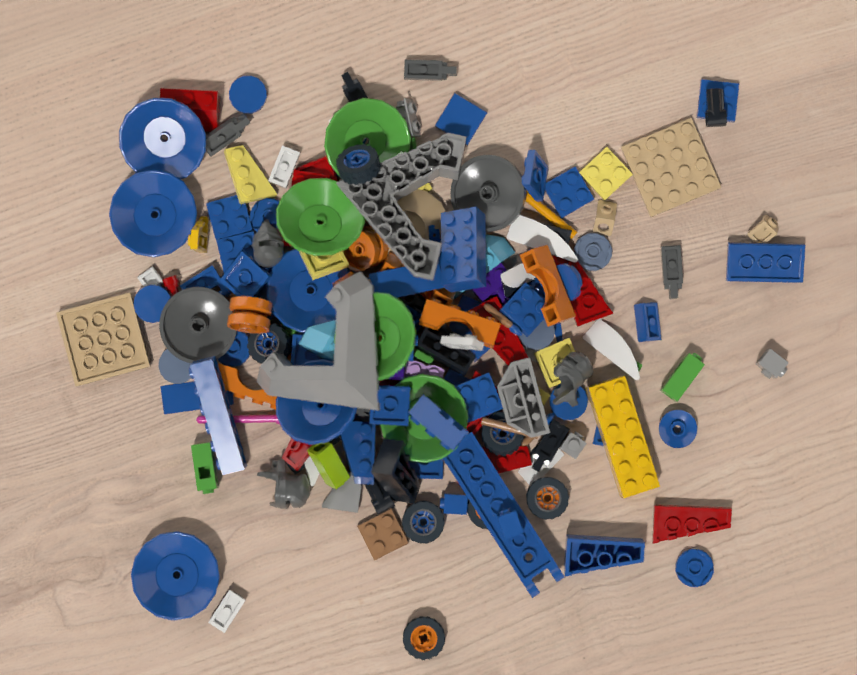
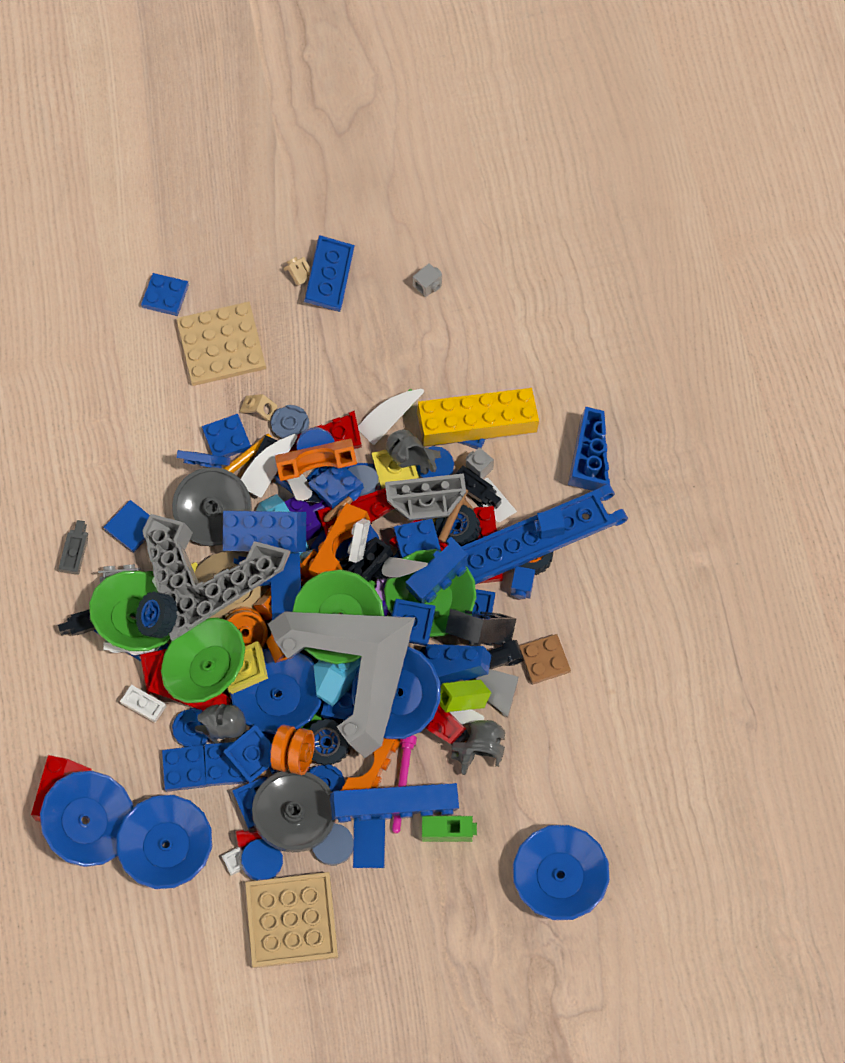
camera: 80 degrees left, 20 degrees down
(199, 235) = (202, 798): yellow wing -> none
(225, 134) = (94, 755): dark grey hinge -> none
(227, 611) = (606, 827): white plate -> none
(247, 94) = (58, 731): blue tile -> none
(247, 177) = (144, 743): light yellow wing -> none
(412, 525) = (531, 607): black wheel -> none
(423, 649) = (663, 641): black wheel -> none
(440, 384) = (398, 567): none -> white sticker
(558, 500) = (536, 488): black wheel -> none
(605, 173) = (215, 401): light yellow plate -> none
(647, 322) = (368, 384): blue slope -> none
(672, 269) = (321, 354): dark grey hinge -> none
(681, 521) = (568, 377): red wing -> none
(683, 376) = (427, 358): bright green brick -> none
(687, 426) = (481, 362): blue dish -> none
(694, 568) = (616, 375): blue tile -> none
(715, 114) = (177, 292): black piece -> none

